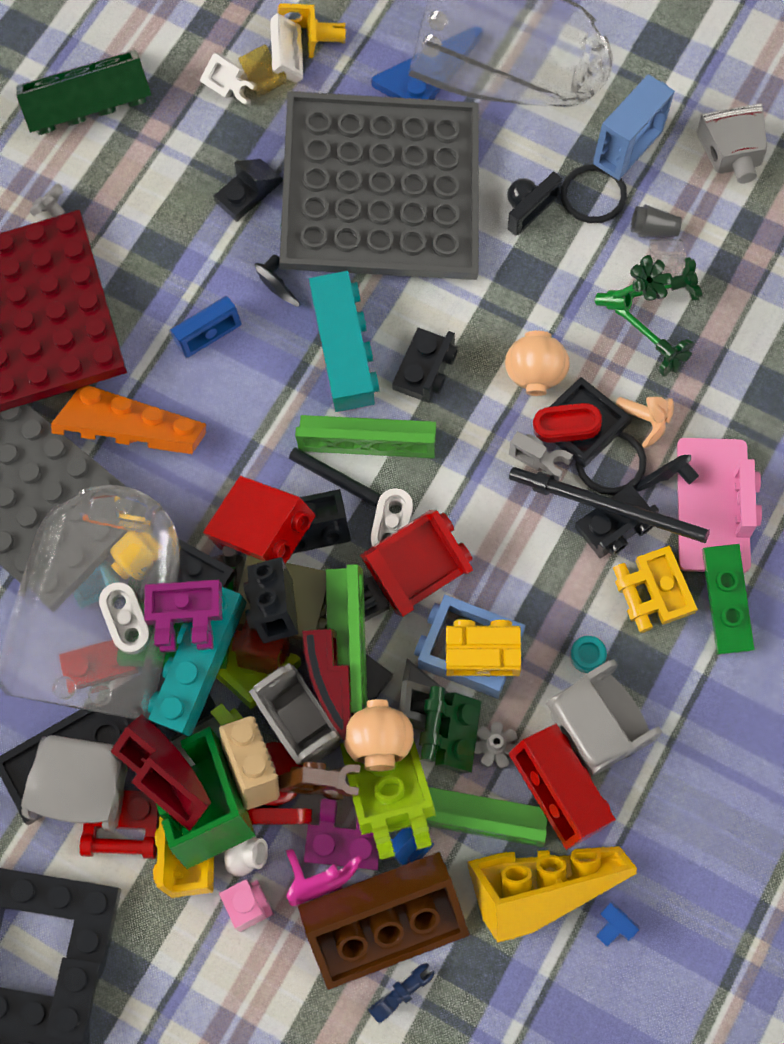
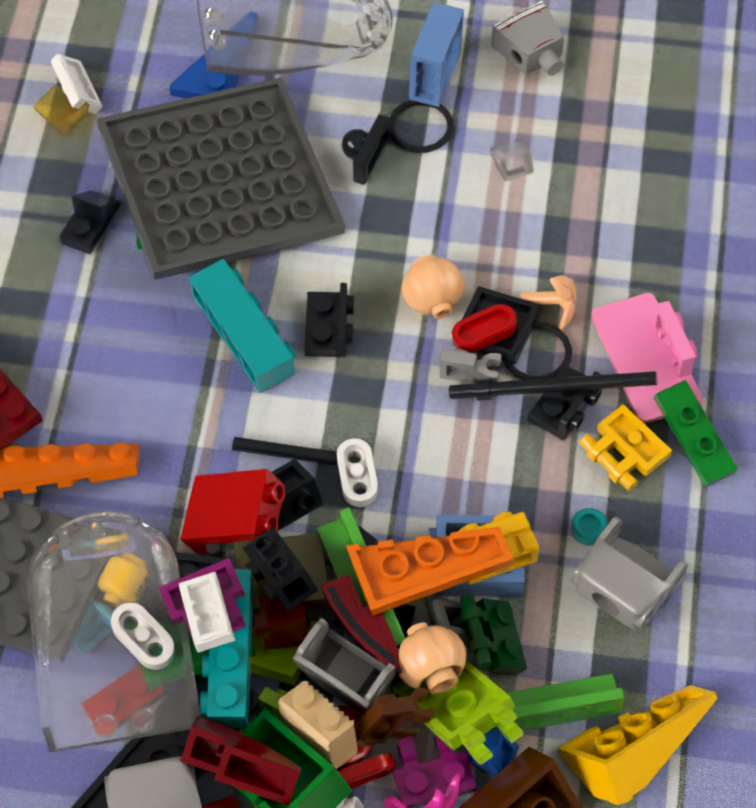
camera: 25 degrees left, 10 degrees down
(173, 628) = (206, 612): none -> white plate
(206, 326) = (101, 356): blue brick -> none
(224, 78) = (27, 127): white plate -> none
(273, 282) = (150, 296): black bar -> none
(316, 30) = (96, 60): yellow bracket -> none
(366, 436) = (300, 404): bright green fence -> none
(399, 648) = (420, 567): none -> orange wing
(417, 561) = (398, 493): red panel -> none
(495, 752) = (539, 637): light grey plant -> none
(561, 786) = (616, 647): red brick -> none
(617, 923) = (719, 749): blue tile -> none
(652, 285) = (515, 179): dark green plant -> none
(654, 222) = (488, 132): dark grey cone -> none
(679, 465) = (601, 331): black bar -> none

